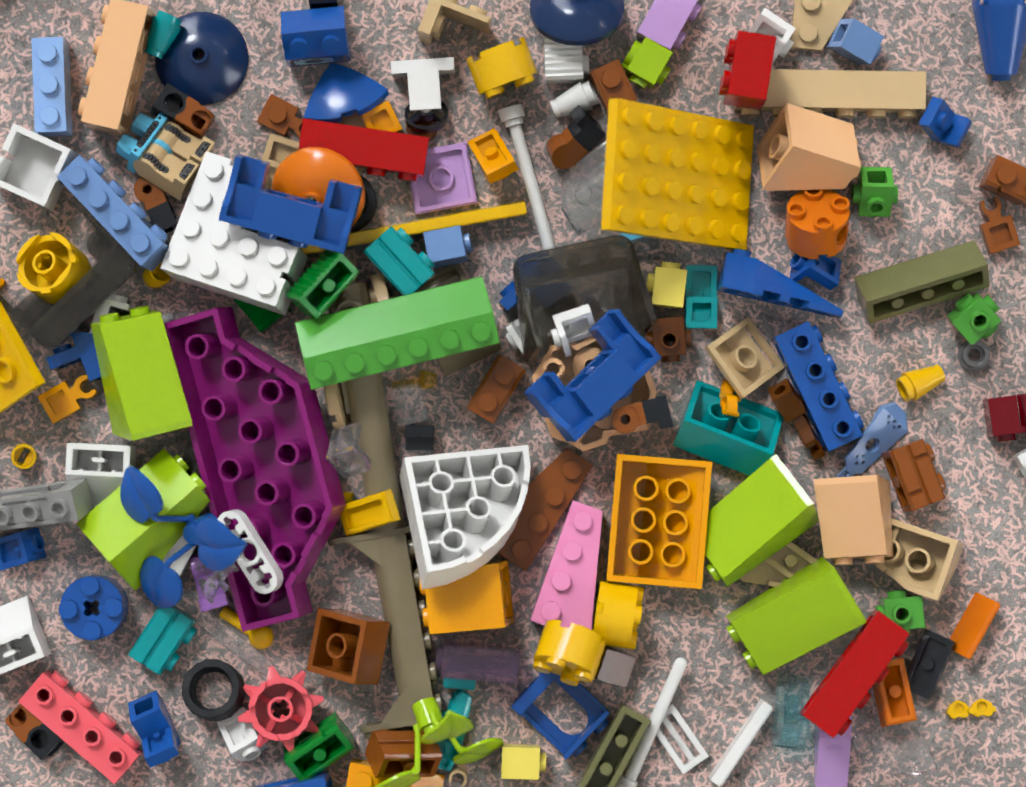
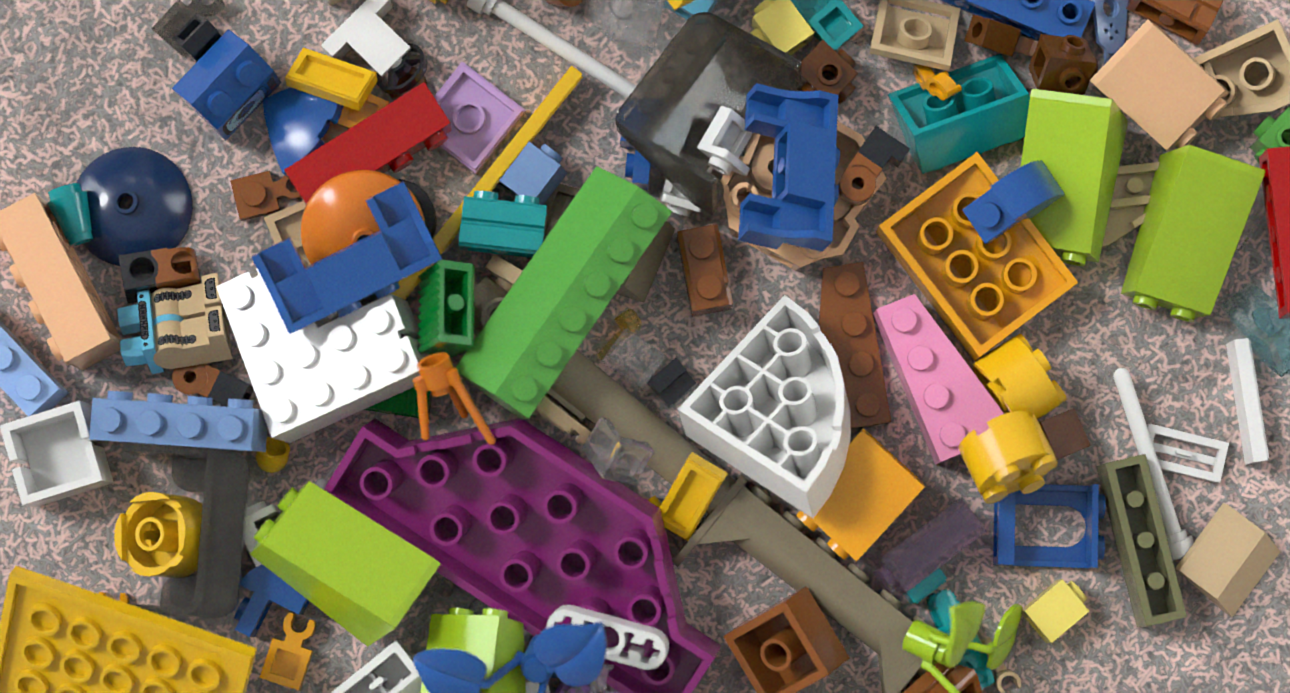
camera: 45 degrees left, 5 degrees down
(282, 321) = (442, 378): none -> orange plant
(379, 86) = (331, 79): none -> yellow tile
(493, 156) = (501, 51): light orange slope -> none
(705, 509) = (1012, 199): none -> blue brick
(808, 456) = (1063, 64): none -> reddish brown brick

